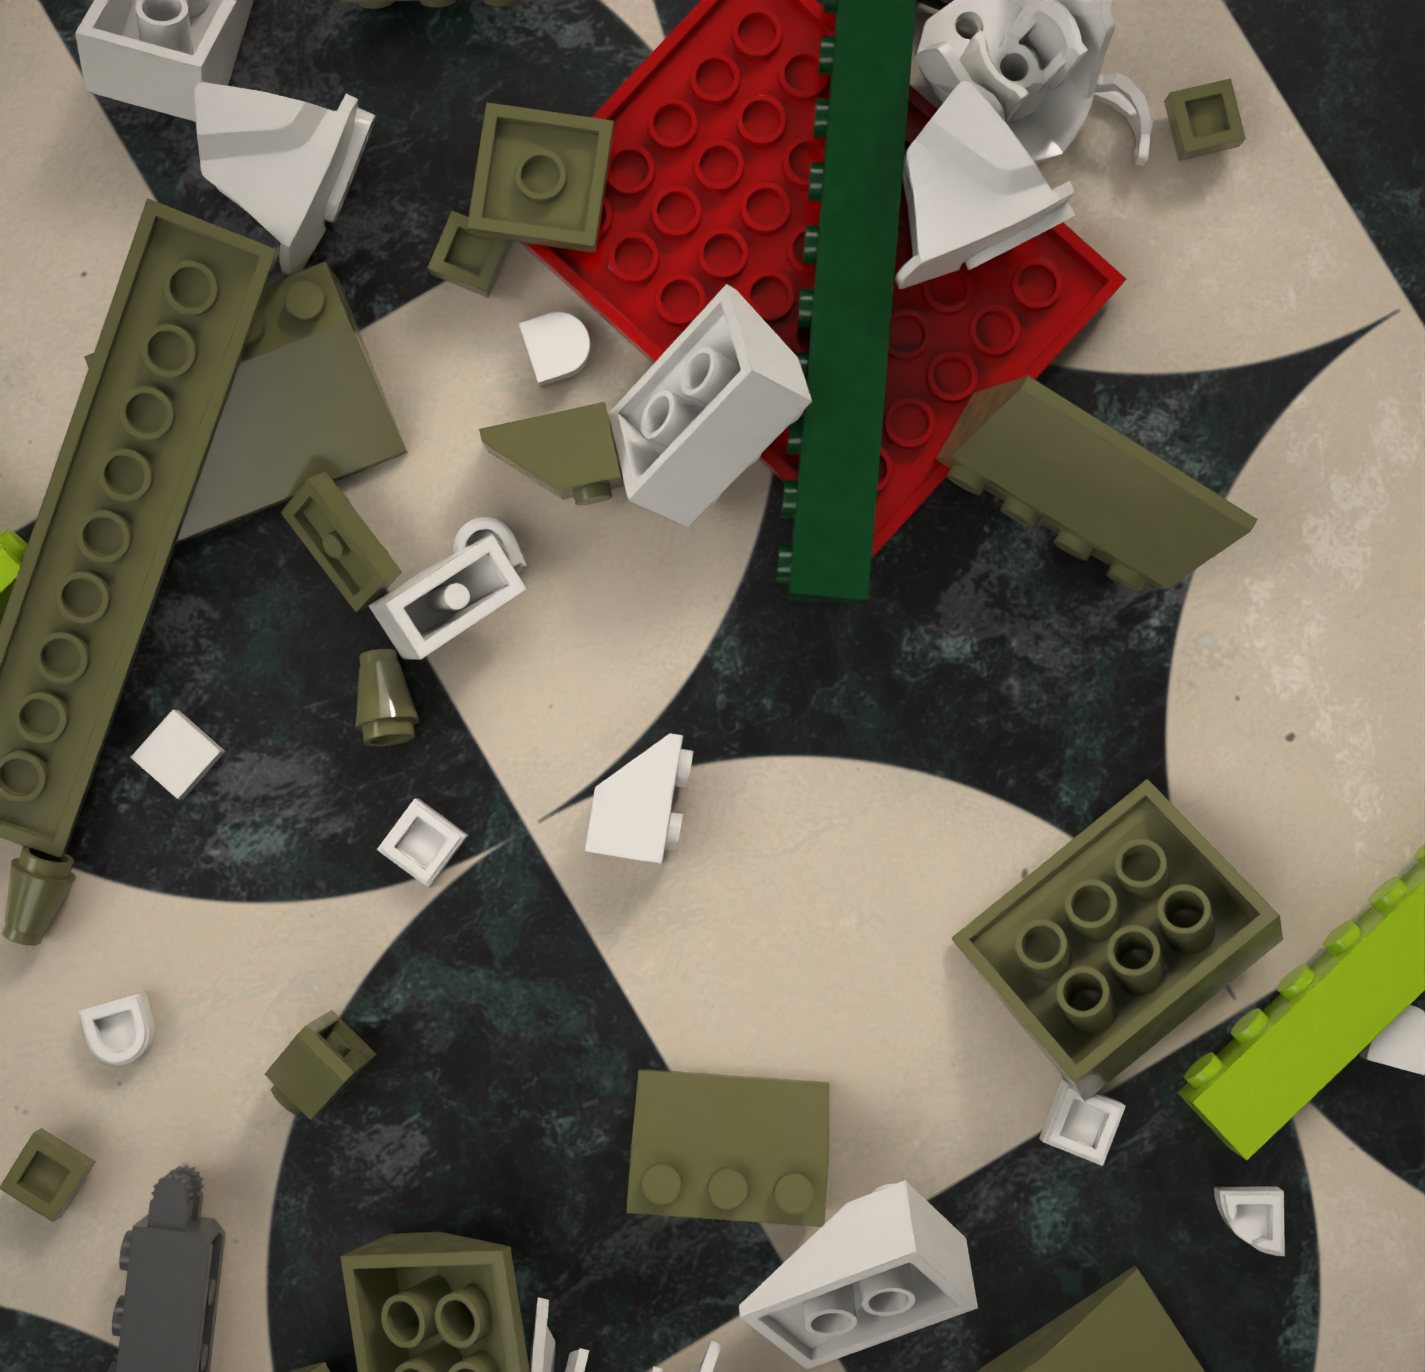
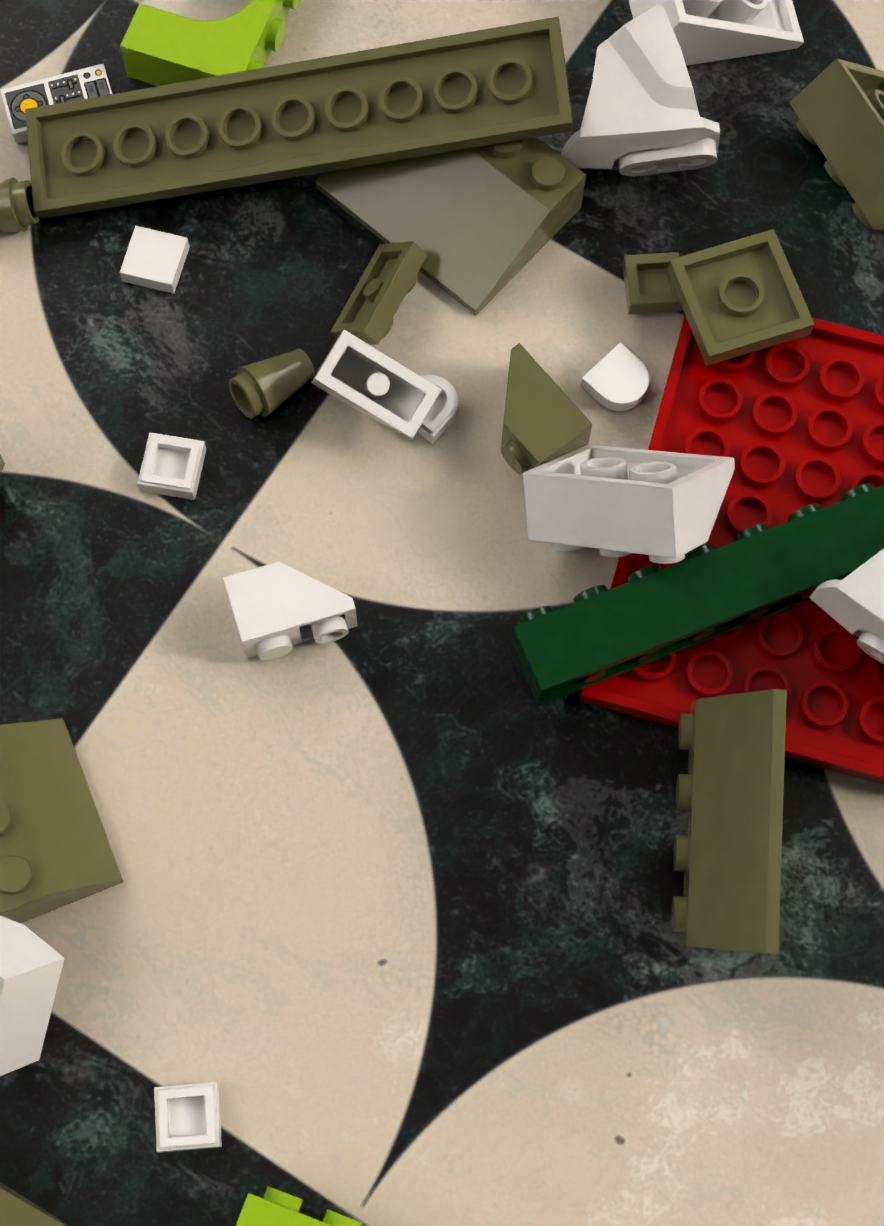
camera: 65 degrees right, 15 degrees down
(1119, 938) = (361, 1066): olive slope -> none

